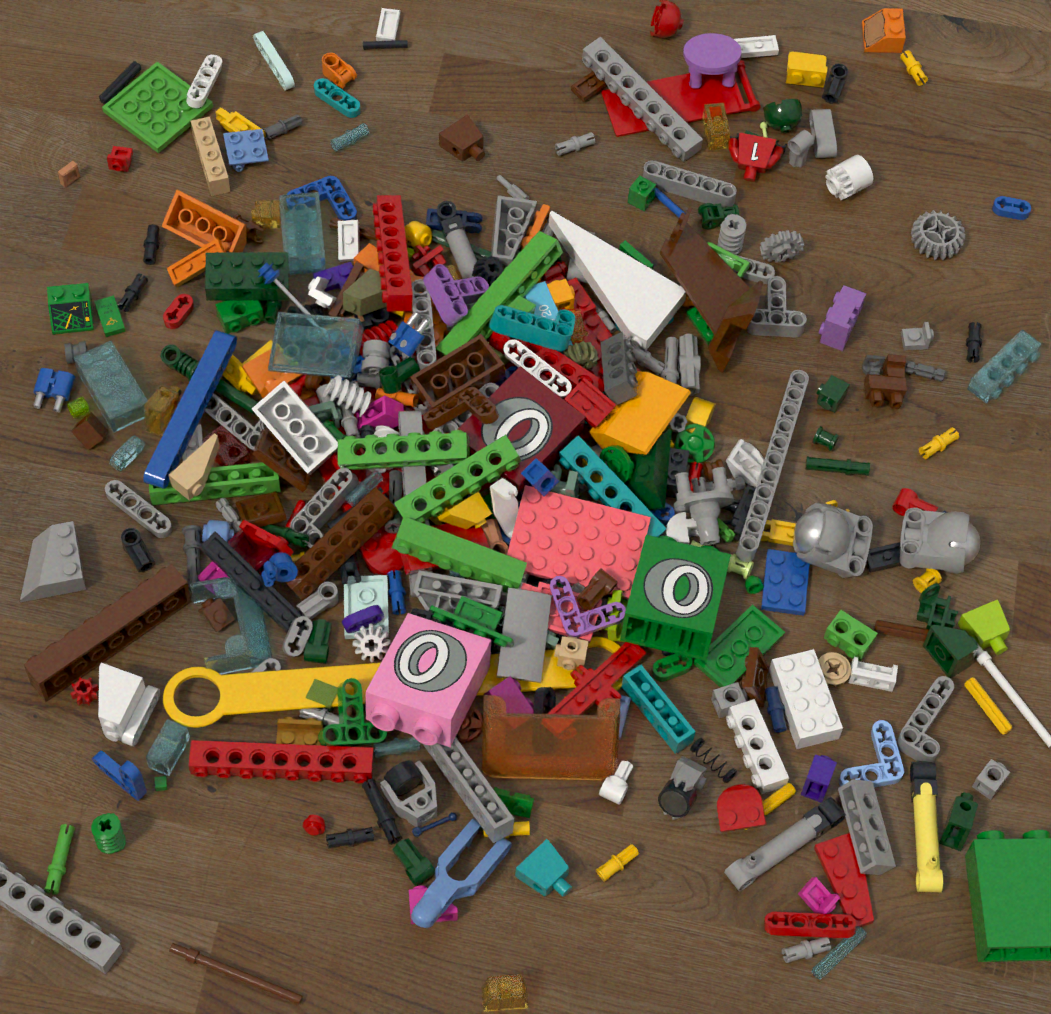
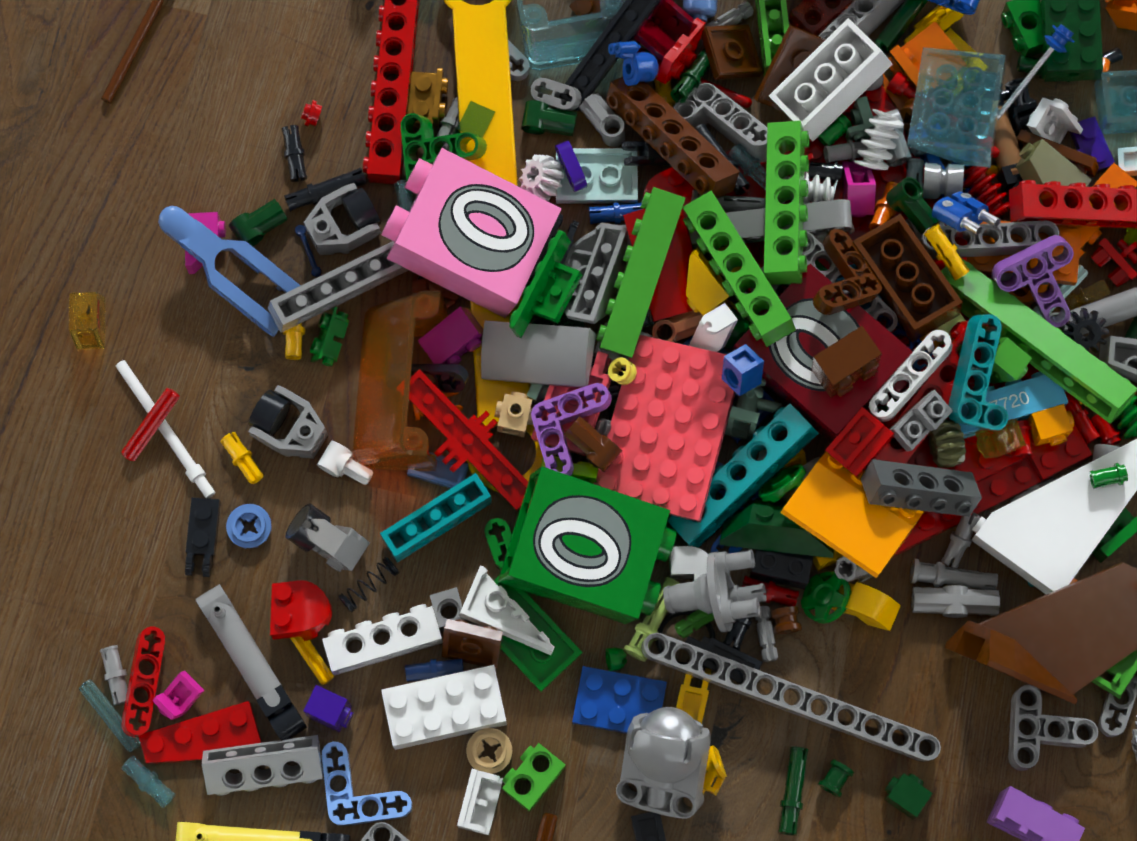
camera: 95 degrees right, 15 degrees up
(439, 347) = (946, 252): none -> yellow pin
(531, 568) = (616, 365): none -> light yellow bush
(536, 400) = (846, 362): none -> reddish brown brick
(545, 871) = (236, 372): teal torso -> none
(567, 362) = (920, 420): none -> light grey slope
(581, 838) = (271, 413): none -> light grey piece
(595, 934) = (150, 424): none -> red axle
(598, 251) = (1109, 476): none -> green pin
(631, 900) = (194, 471): none -> white bar
(671, 844) = (248, 513): none -> medium blue gear
(683, 891) = (202, 533): none -> black hinge
(729, 661) = (491, 606): none -> white wing
(745, 462) = (801, 664): white slope -> none
(888, 917) = (148, 781): none -> clear light blue pin

